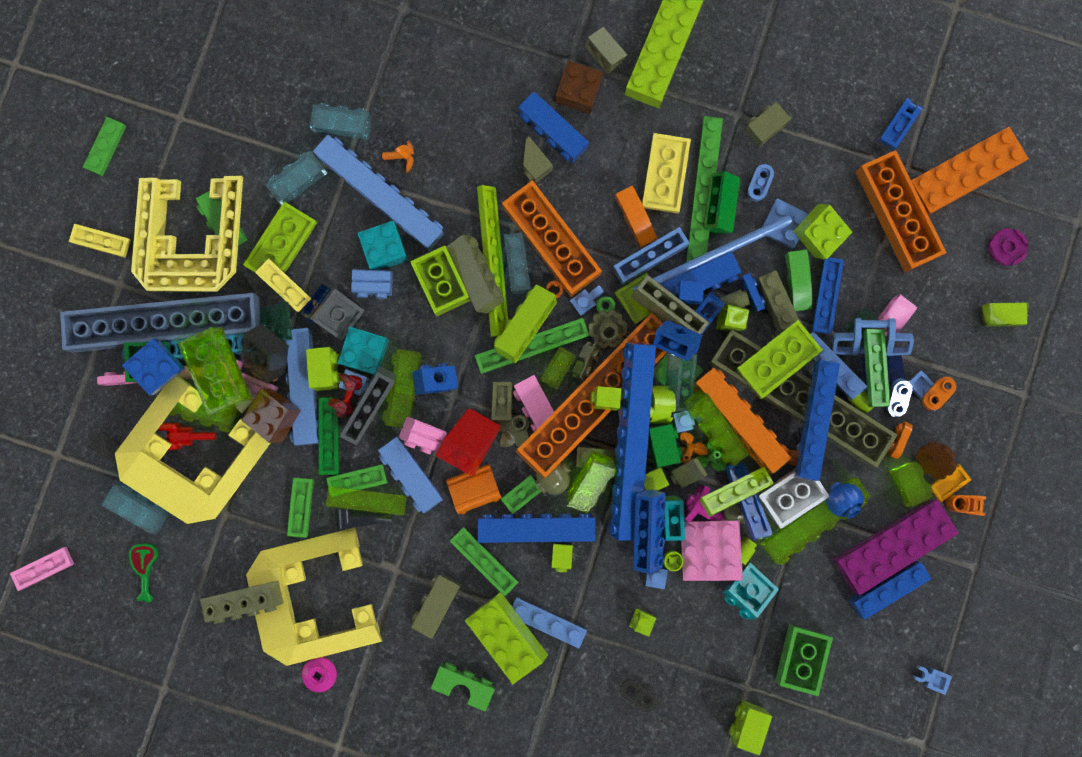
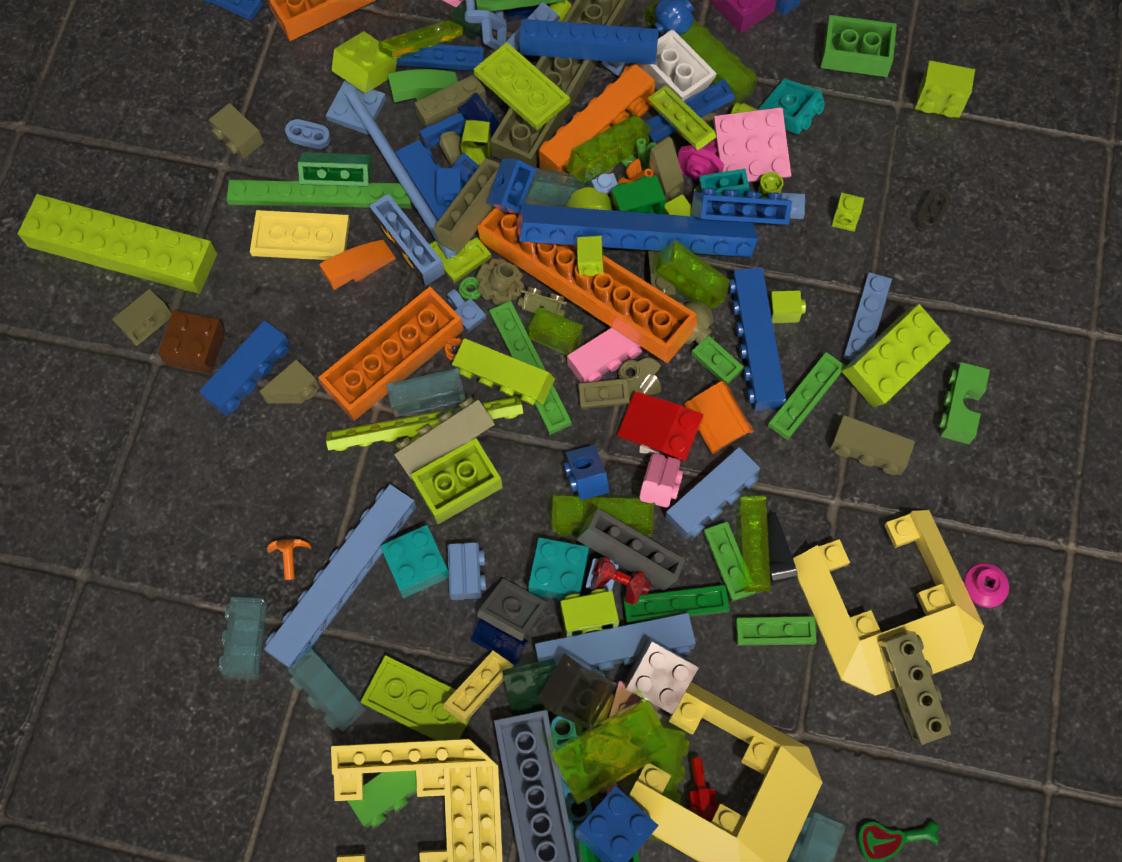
camera: 95 degrees left, 15 degrees down
(760, 324) = (475, 109): none -> clear blue plate
(840, 279) = (420, 38): none -> clear neon green plate

